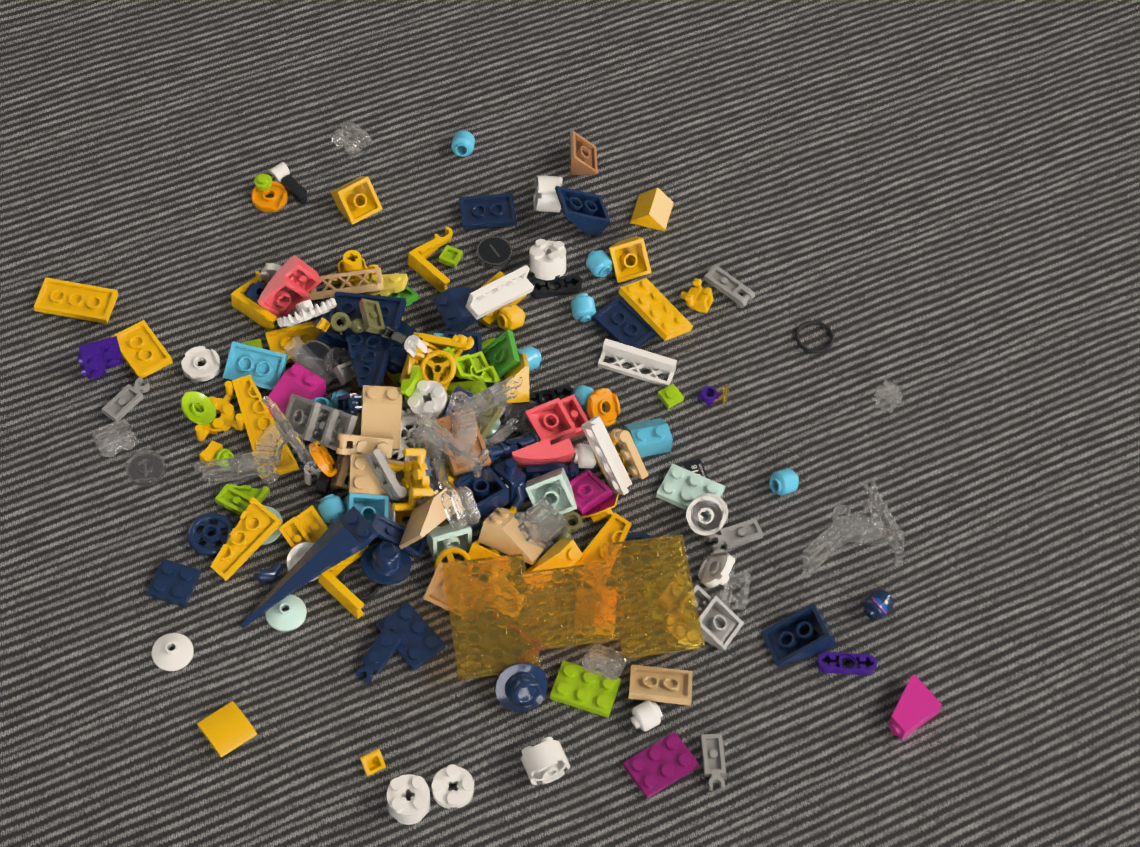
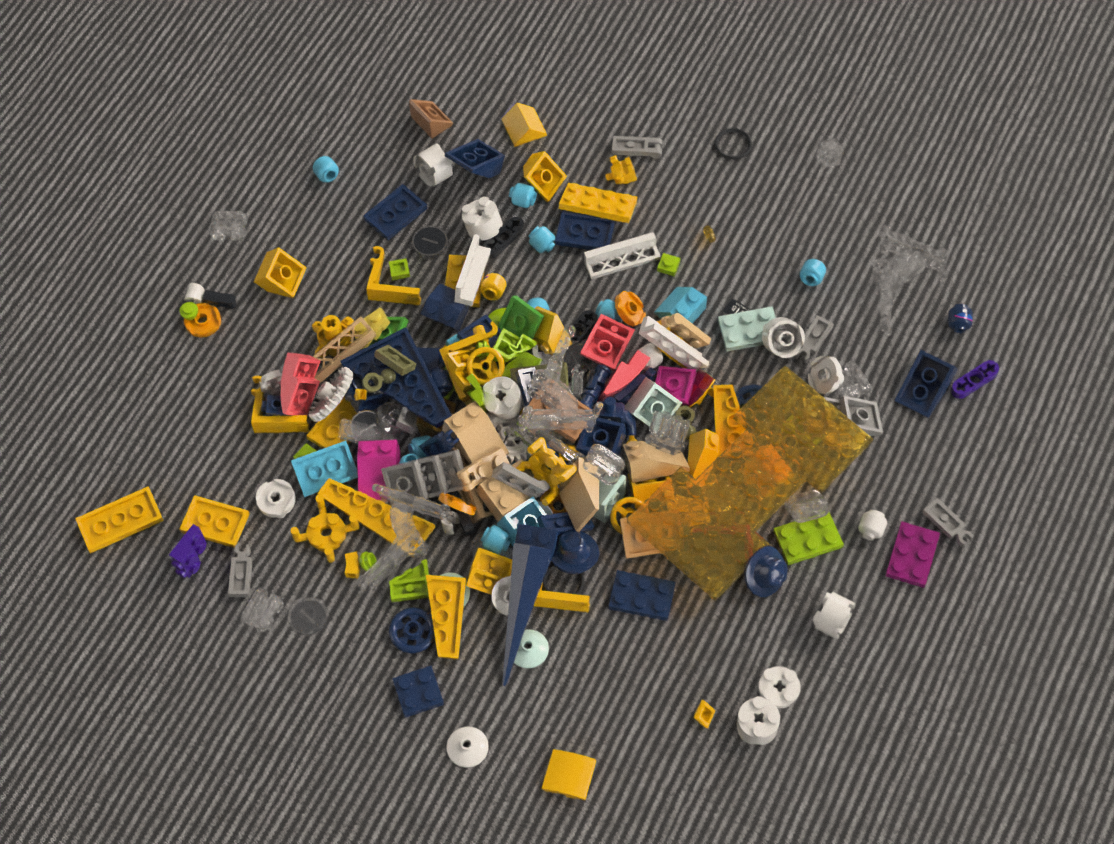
camera: 30 degrees left, 5 degrees up
(198, 408) = (313, 535): lime dish -> none
(268, 575) = (489, 628): dark blue arm -> none
(379, 654) = (633, 626): dark blue plate -> none
(408, 343) = (441, 362): piece -> none
(660, 685) = (862, 493): tan plate -> none
(711, 391) = (696, 239): dark purple plate -> none
(913, 709) = (1049, 378): dark pink slope -> none

